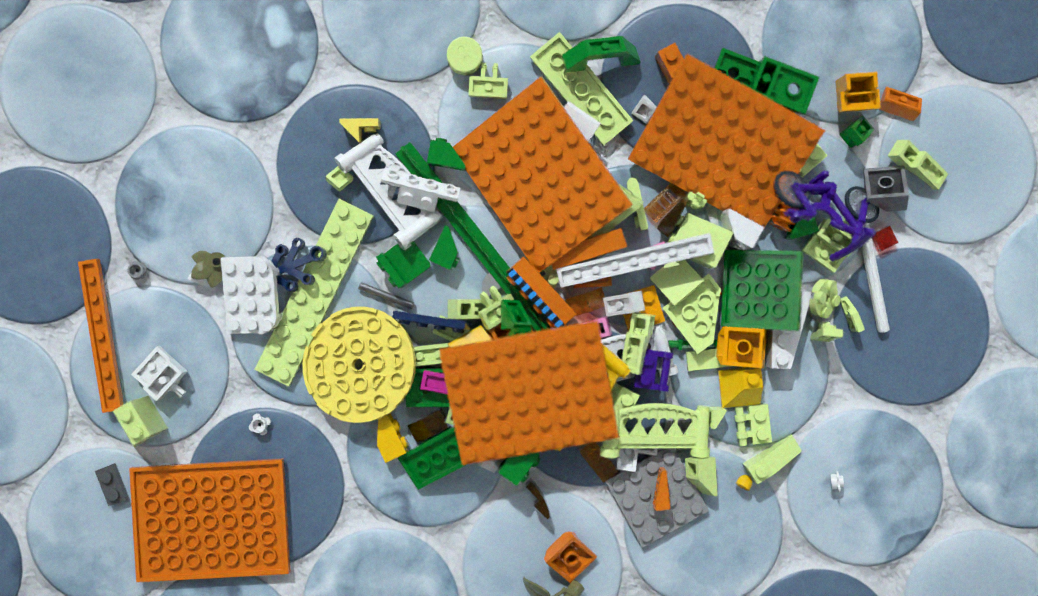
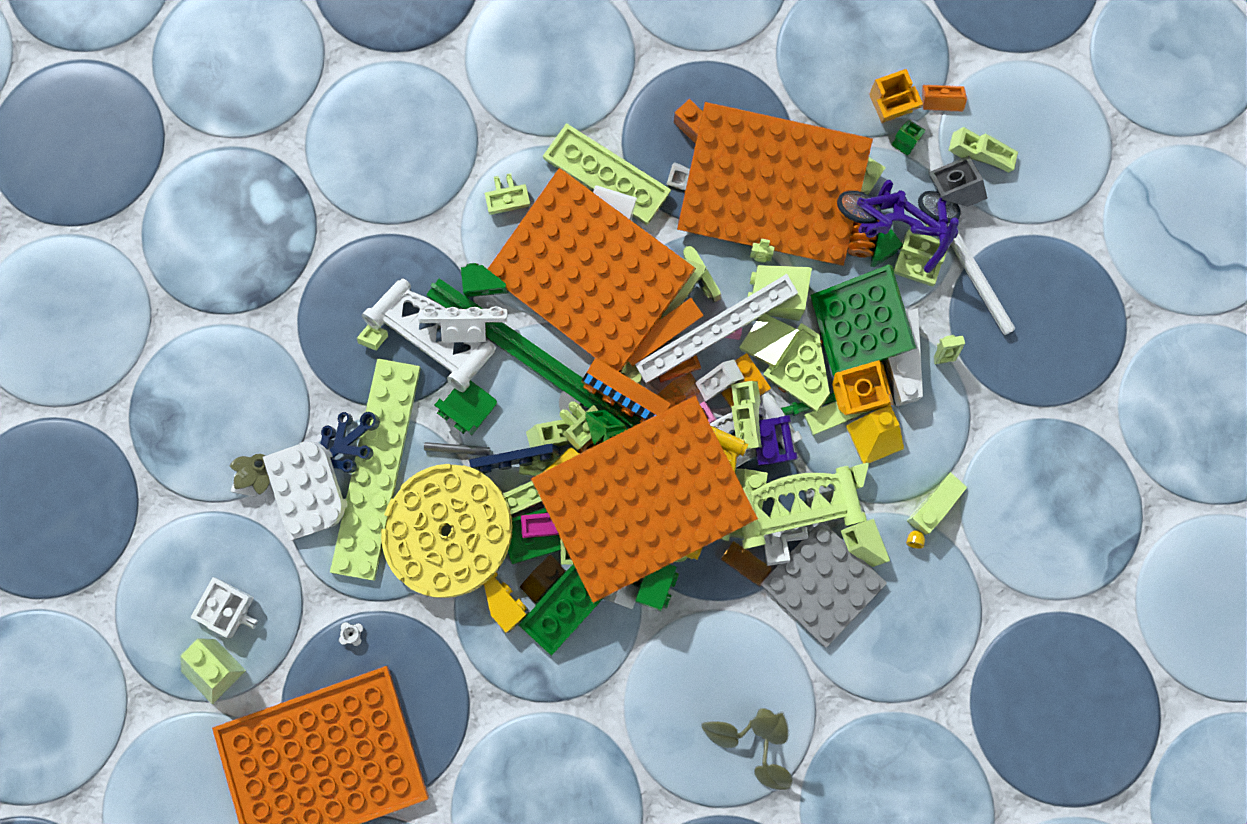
camera: 15 degrees left, 10 degrees down
(100, 334) = (145, 583): orange plate -> none
(112, 484) = (195, 755): dark grey plate -> none
(132, 270) = (167, 496): light grey plate -> none
(355, 126) = (376, 276): light yellow slope -> none
(445, 251) = (509, 381): green slope -> none
(464, 56) = (473, 175): yellowish green head -> none
(540, 503) = (695, 629): dark brown slope -> none
(569, 556) = (746, 681): orange slope -> none
(600, 48) = (592, 140): green slope -> none
(655, 210) = (723, 275): clear orange slope -> none
(661, 496) = (827, 576): orange slope -> none
(669, 222) = (742, 281): dark brown slope -> none
(744, 230) = (824, 265): white slope -> none
(759, 424) = (910, 471): yellowish green plate -> none
(770, 79) = (802, 105): green bracket -> none
(824, 298) = (933, 313): yellowish green plate -> none
(837, 481) = (1017, 508): white plate -> none
(852, 315) = (969, 324): yellowish green tile -> none
(884, 238) = (975, 236): clear red plate -> none

